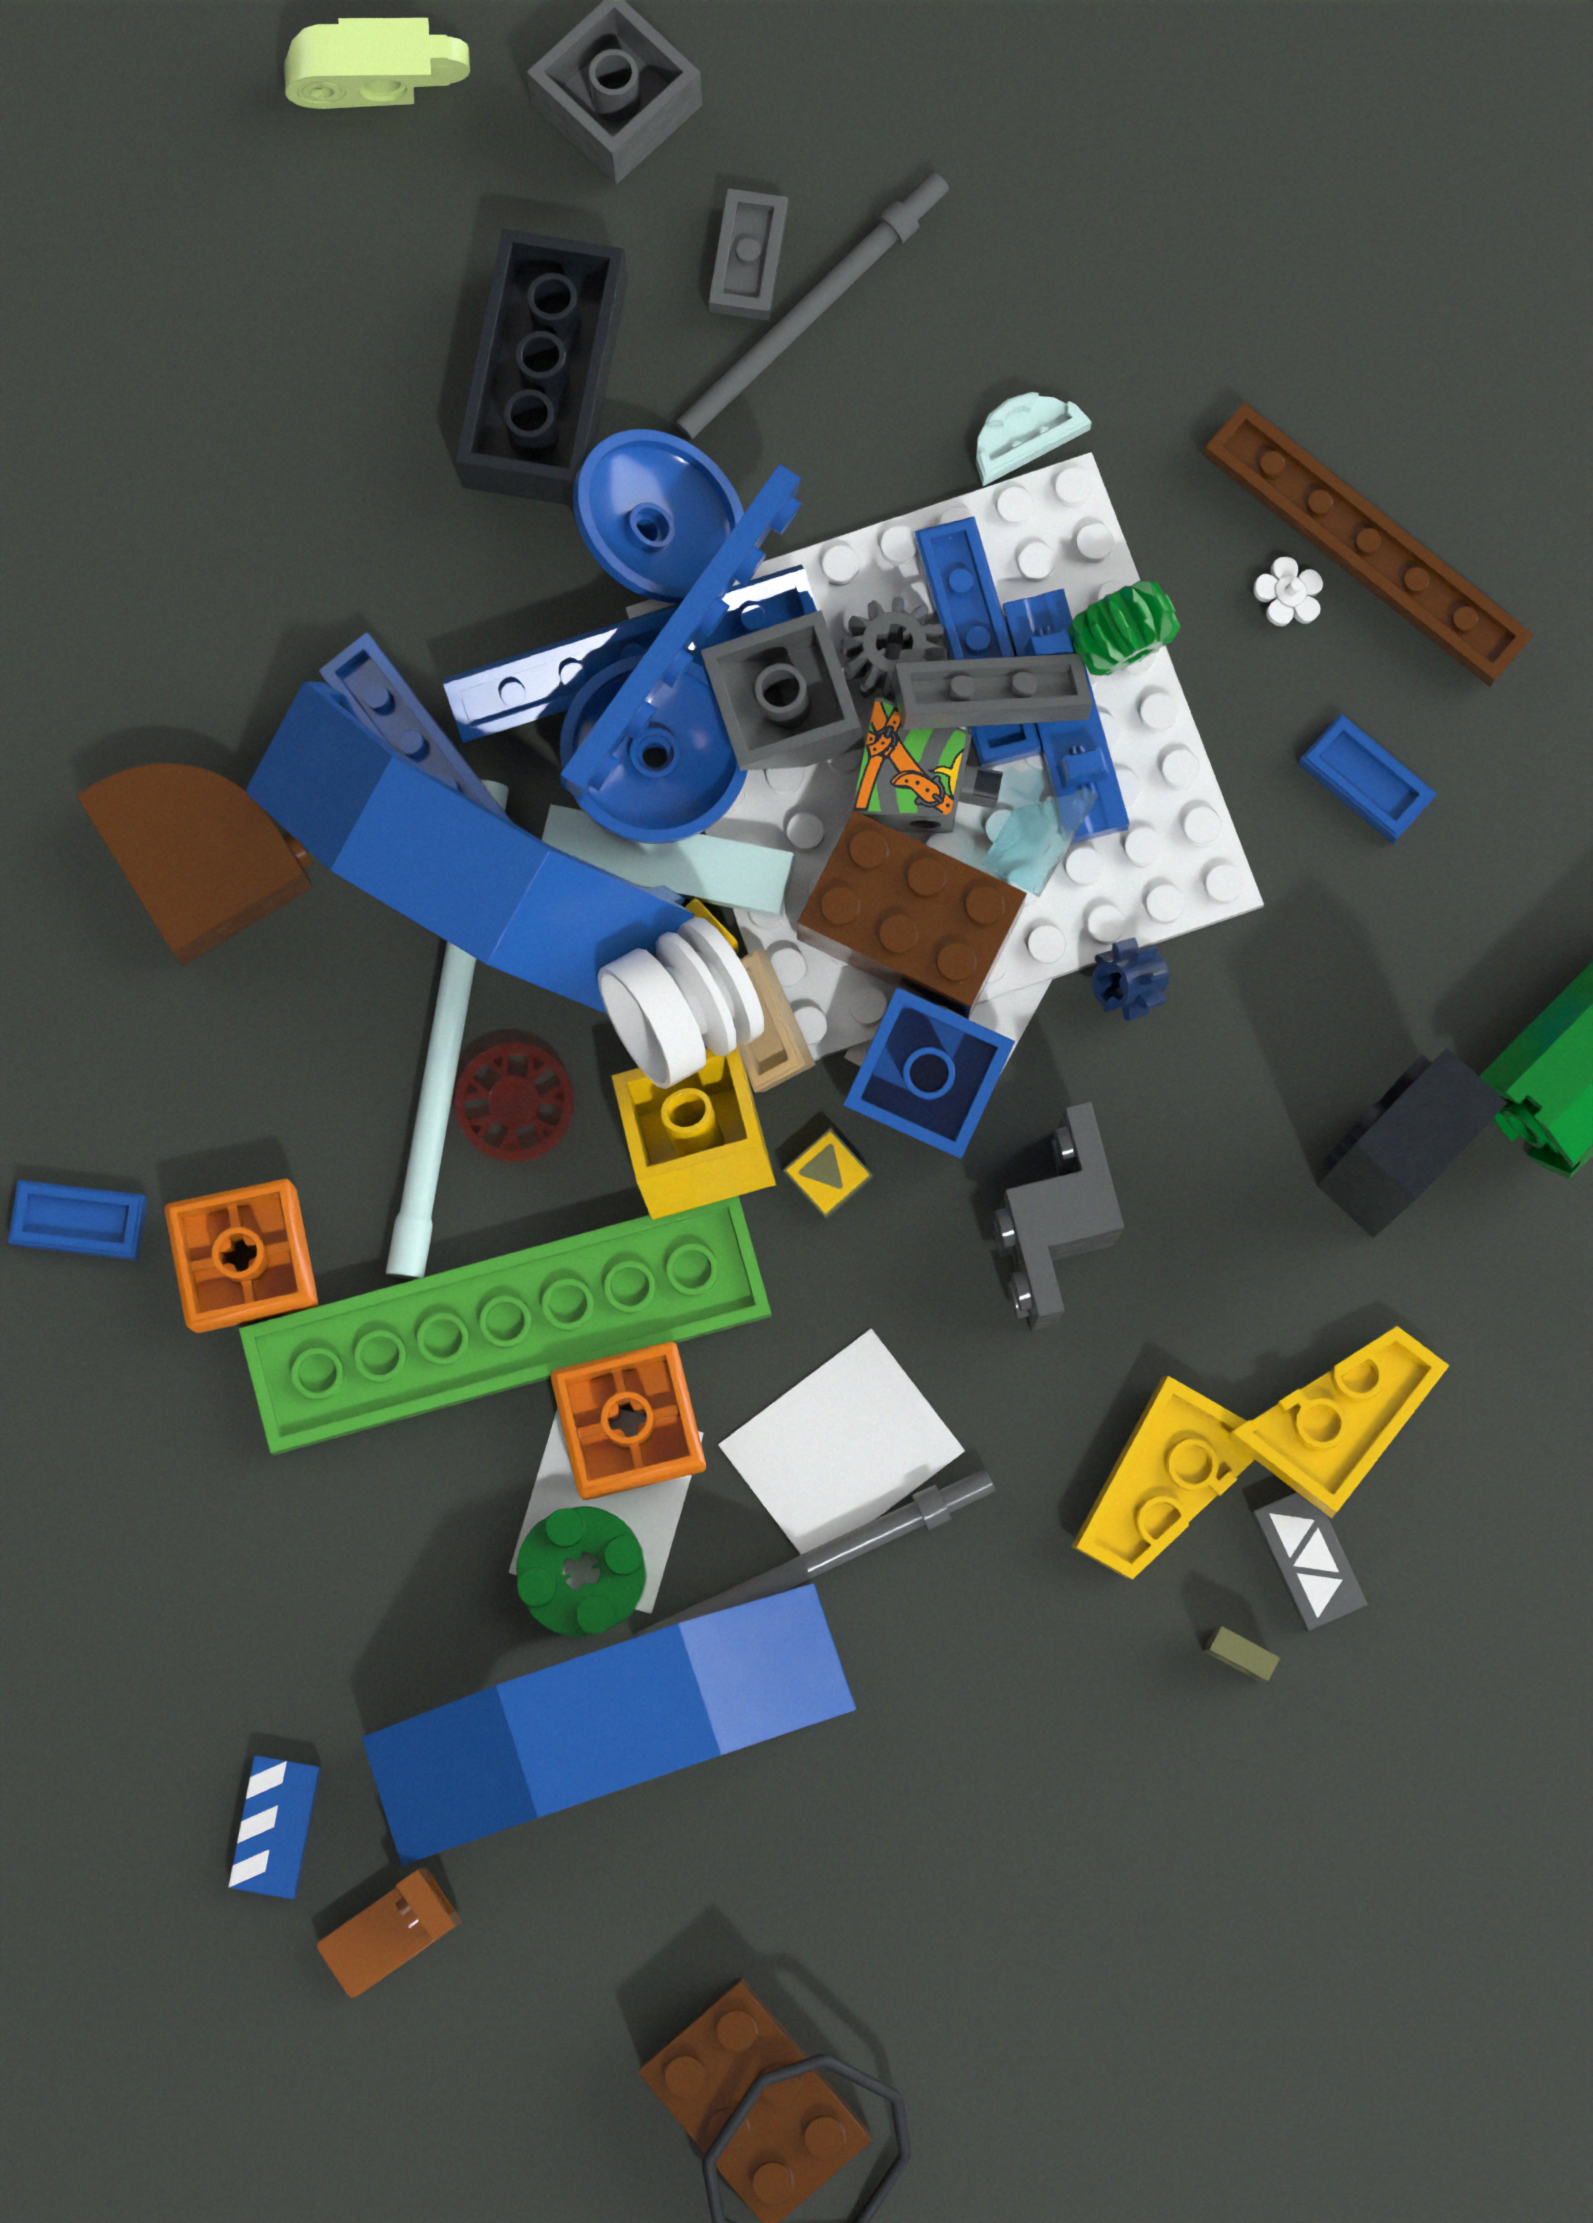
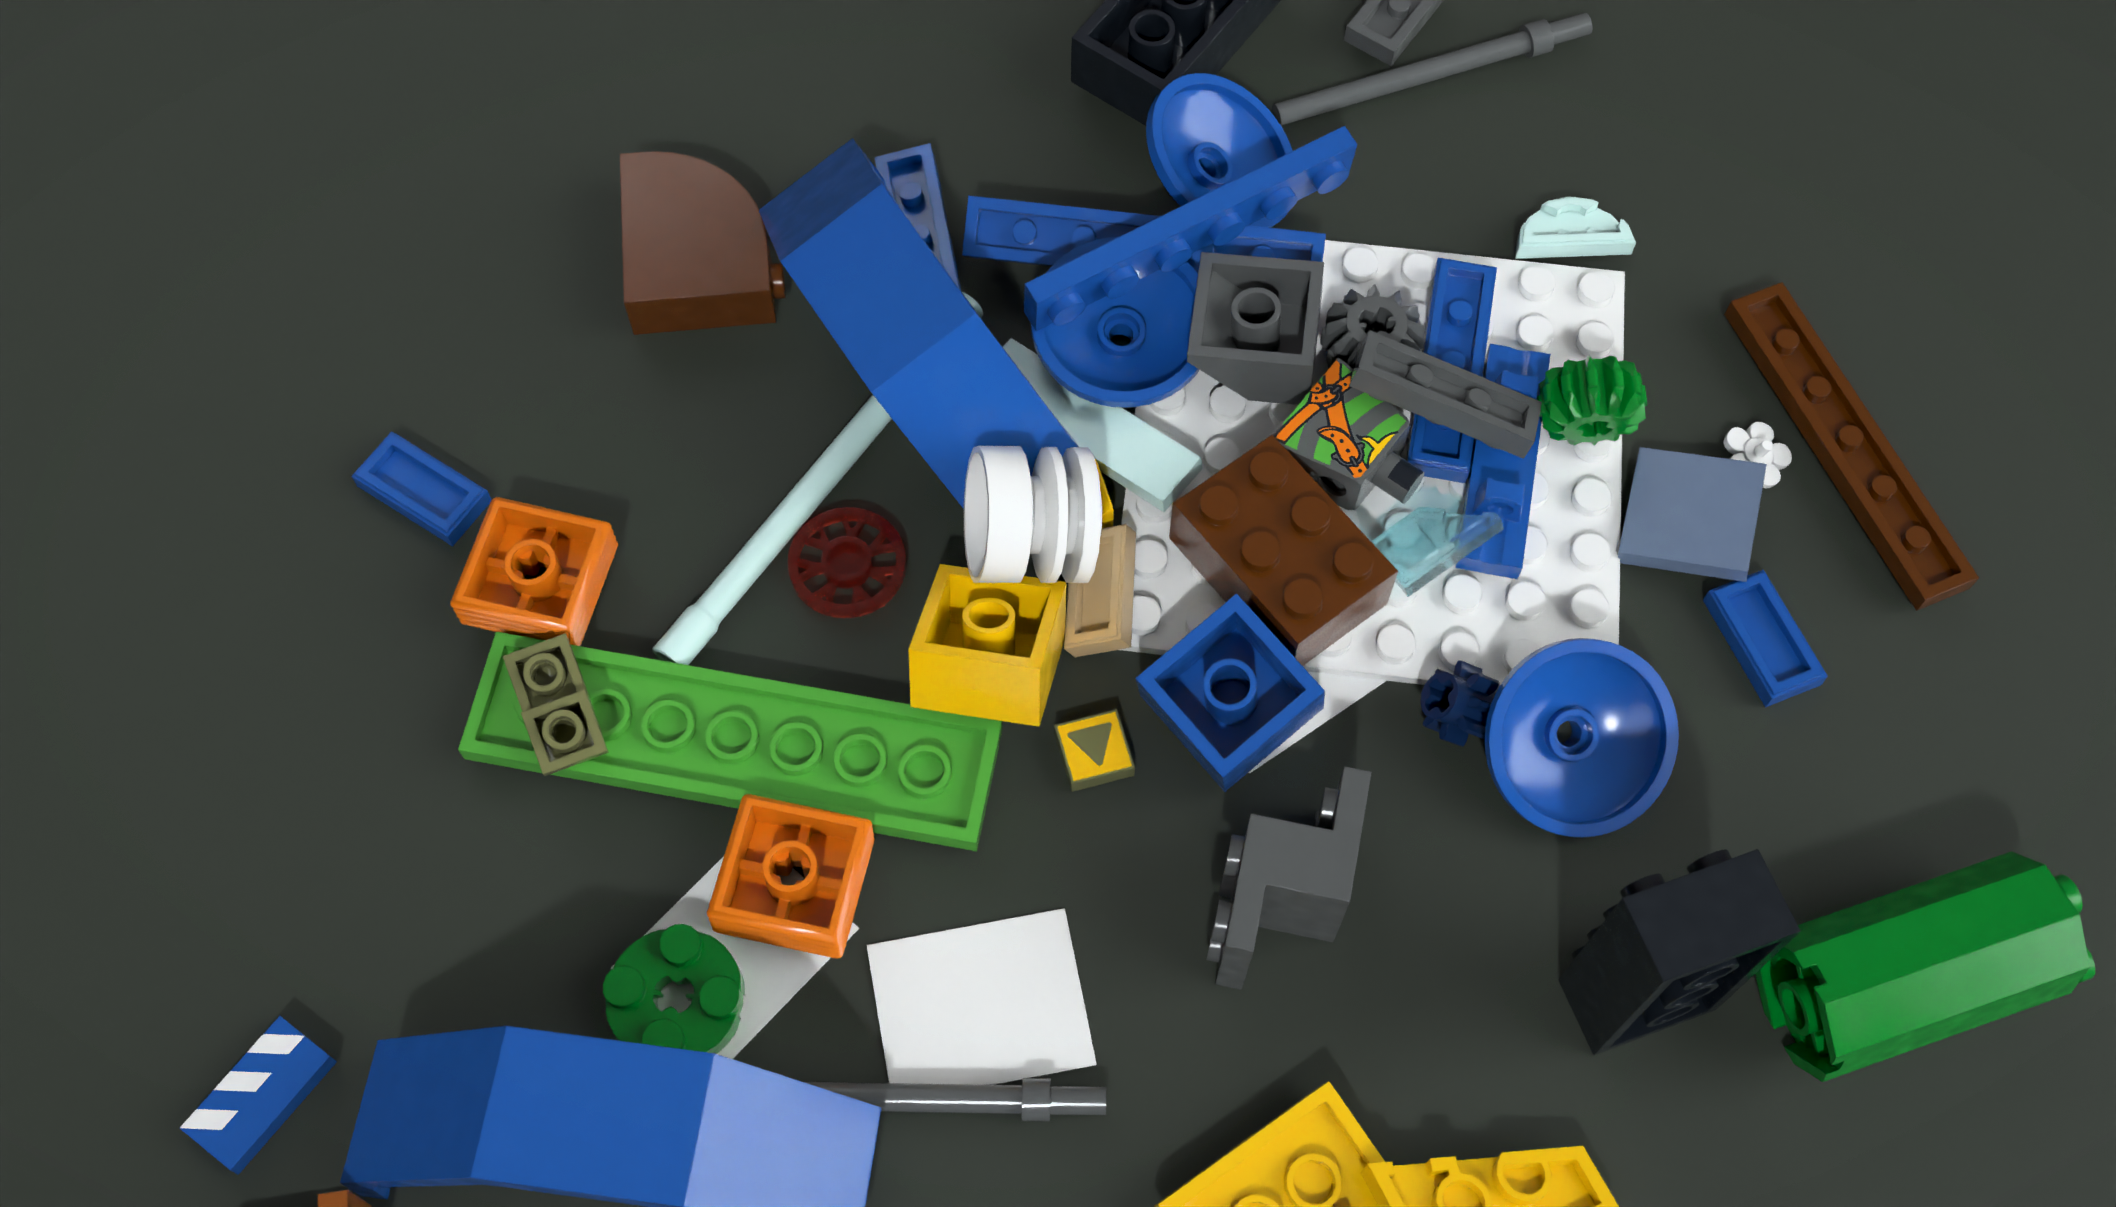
camera: 25 degrees right, 15 degrees down
(338, 1373) = (555, 704): none -> olive slope
(1256, 687) = (1692, 514): none -> sand blue tile
(1279, 970) = (1618, 742): none -> blue dish

